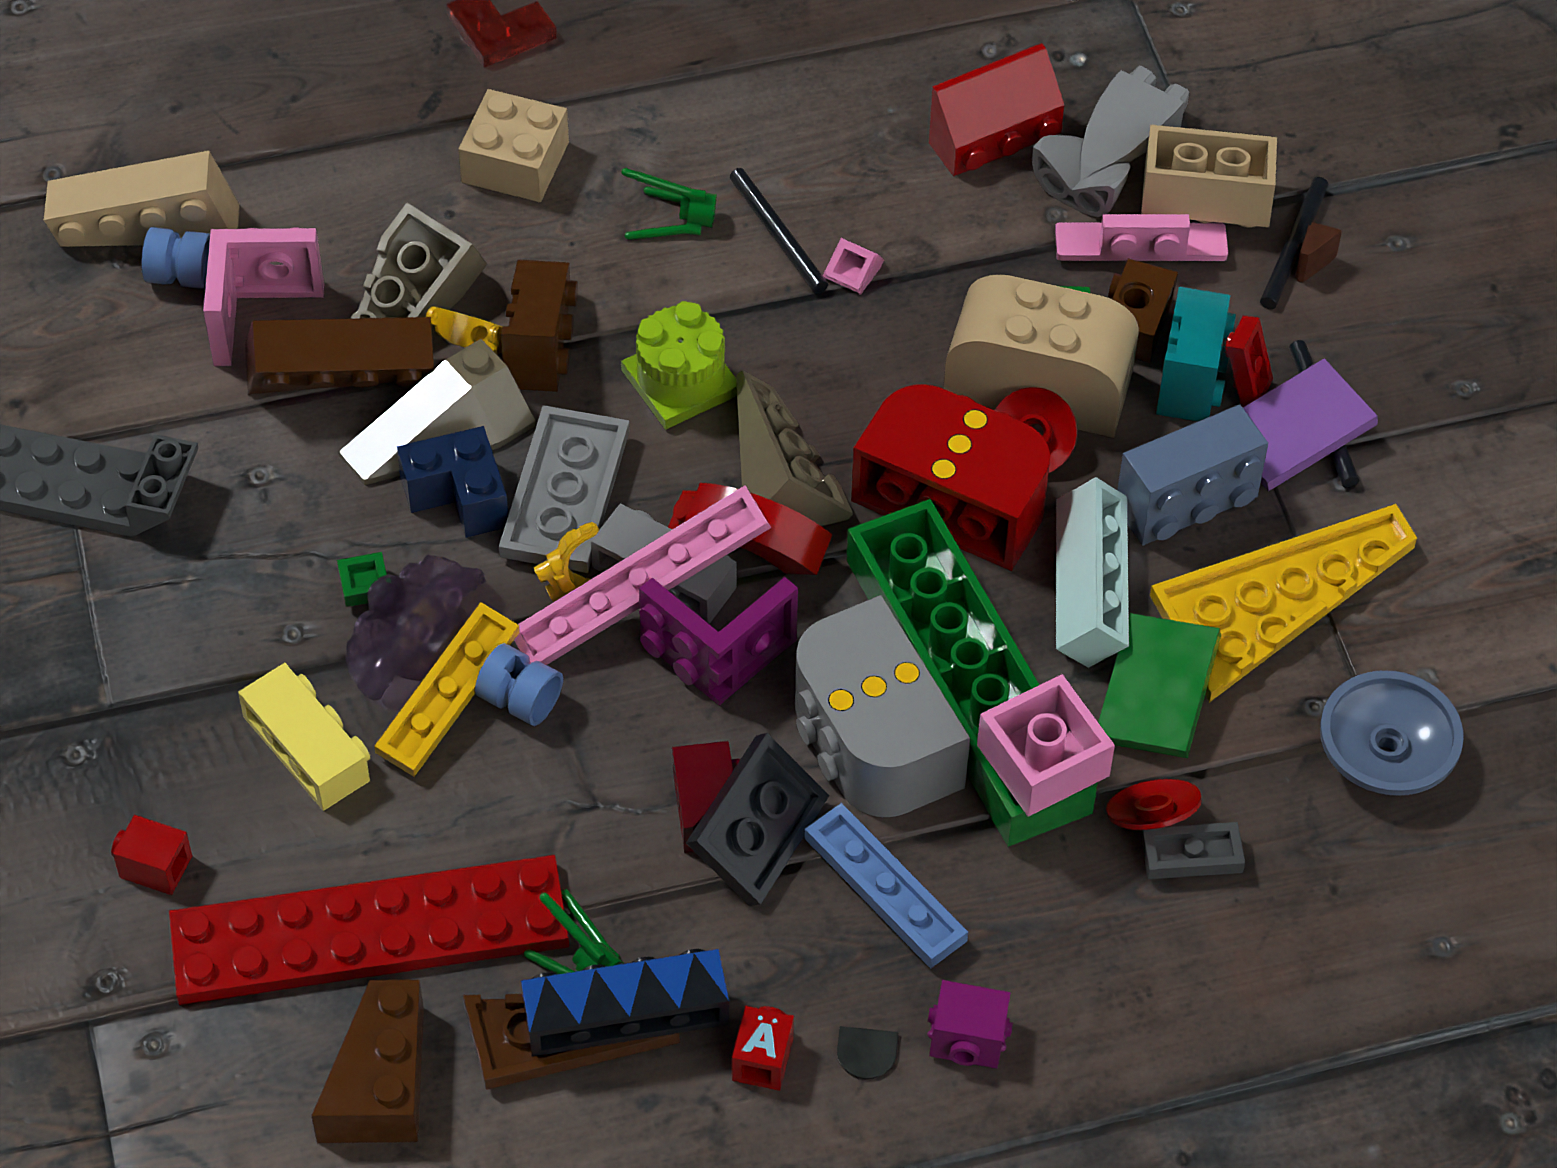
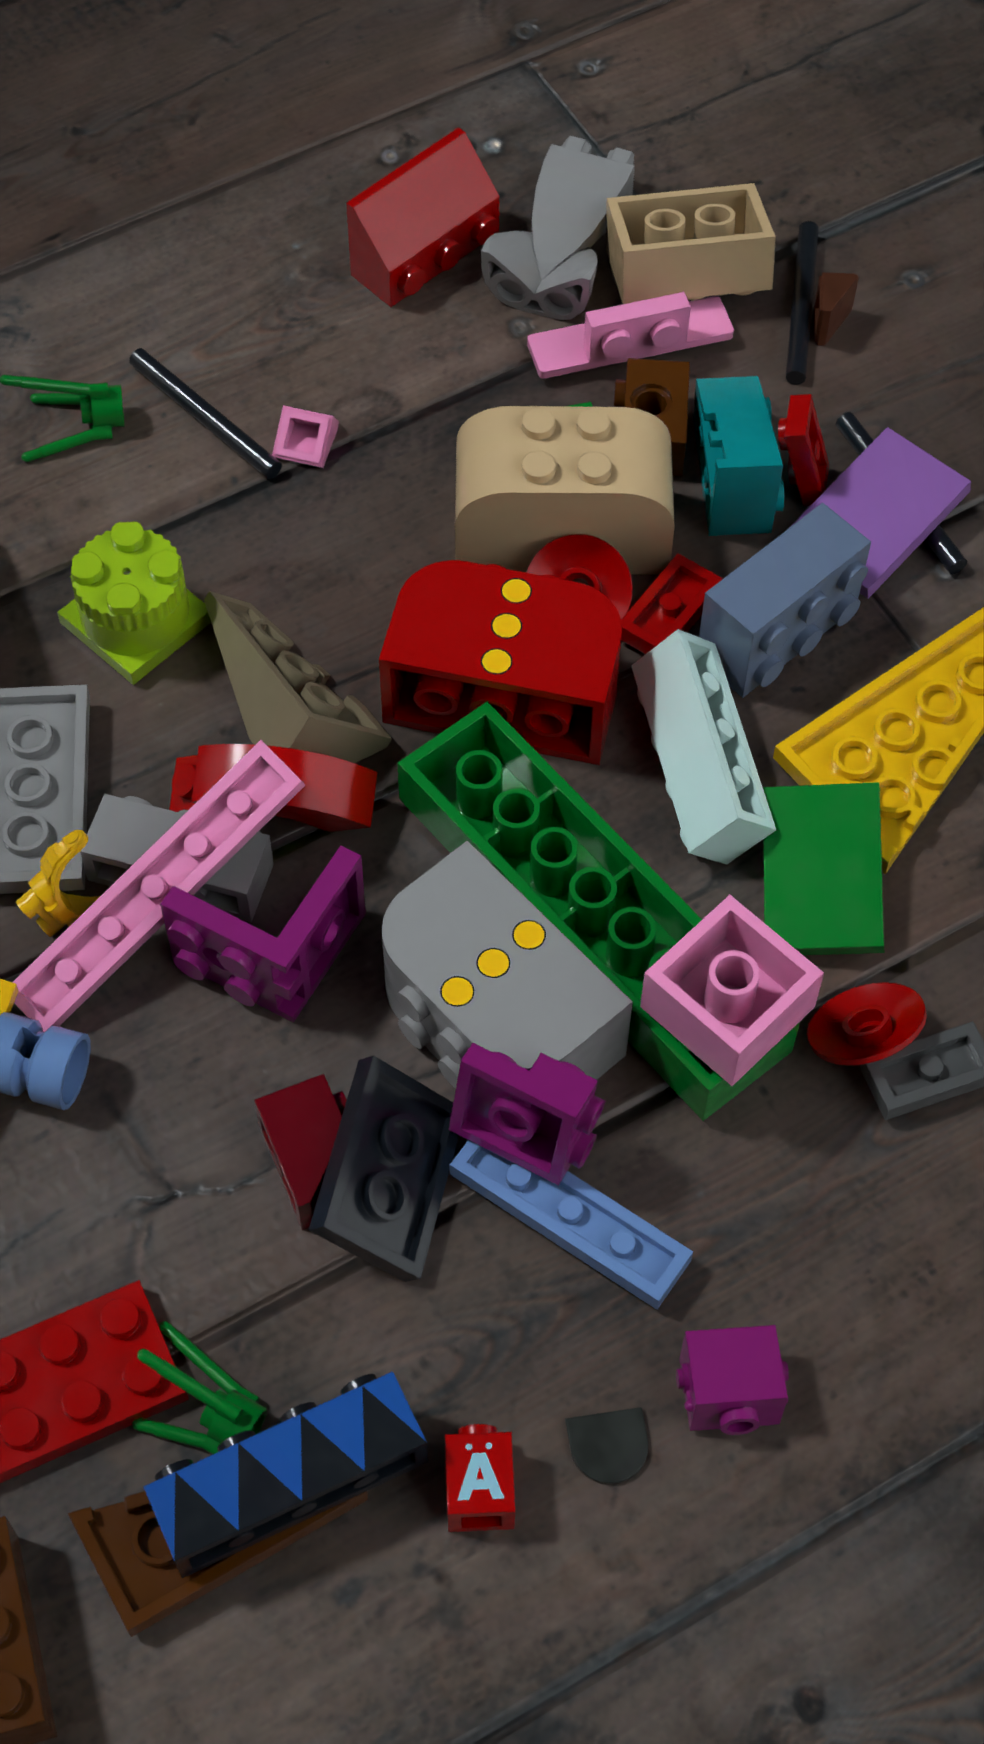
camera: 15 degrees left, 5 degrees up
(869, 798) = (527, 1116): none -> magenta plate
(1098, 458) = (668, 604): none -> red plate

